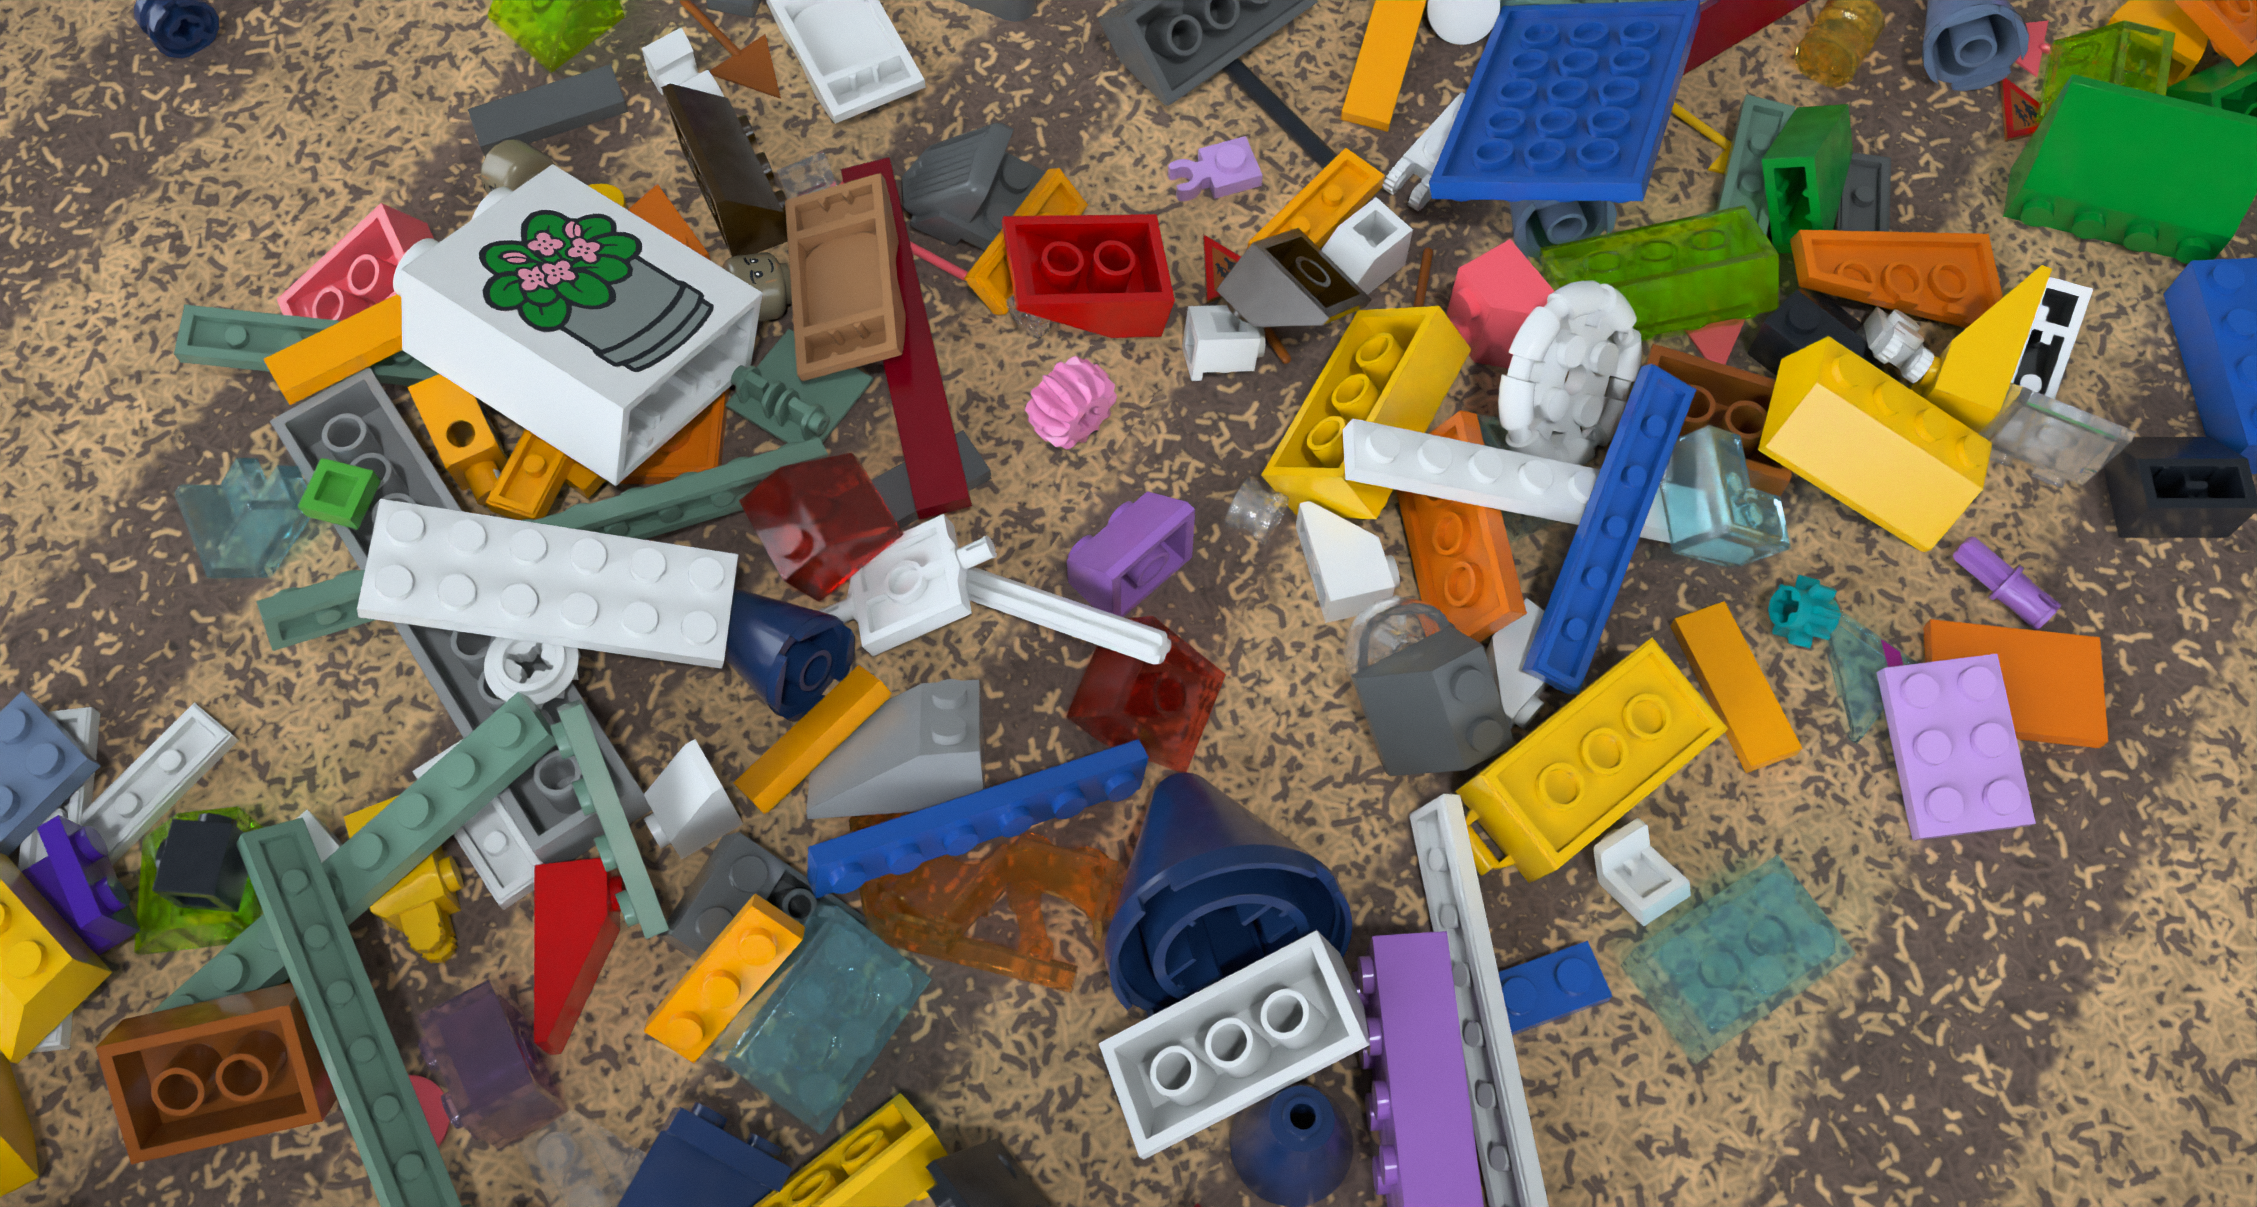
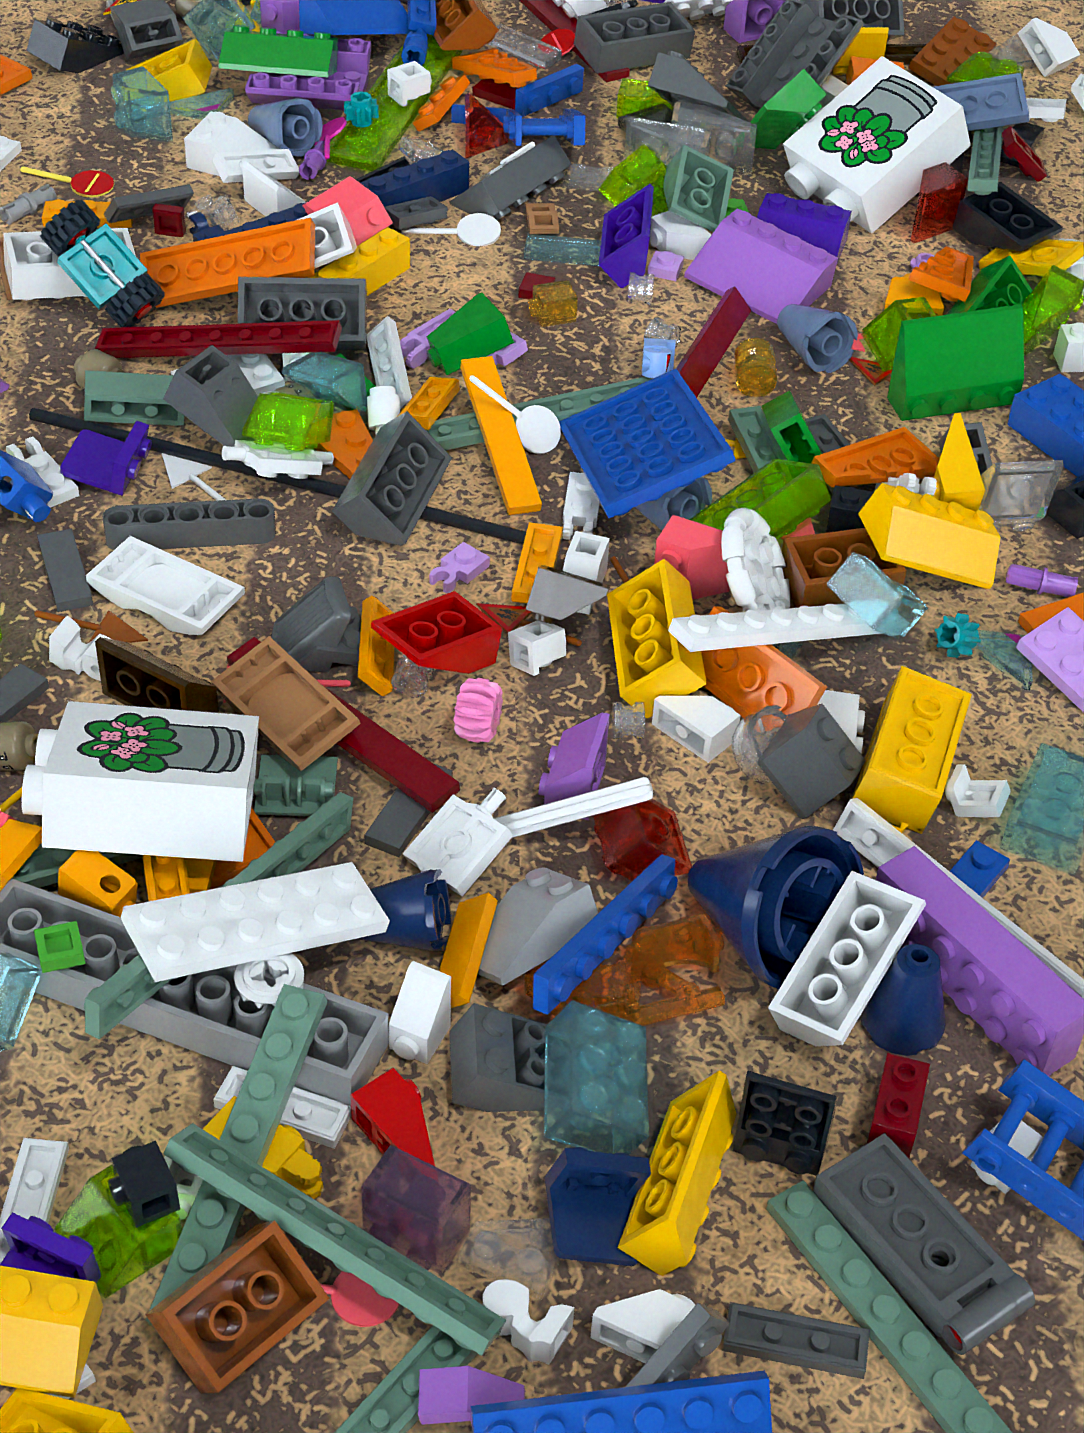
camera: 35 degrees left, 20 degrees down
(599, 795) = (392, 1030): sand green plate -> none
(724, 978) = (524, 1088): light orange plate -> none
(807, 176) = (210, 666): clear plate -> none
(820, 522) = (377, 836): clear red slope -> none
(1609, 530) = (837, 630): blue tile -> none
(1735, 687) = (983, 705): light orange tile -> none

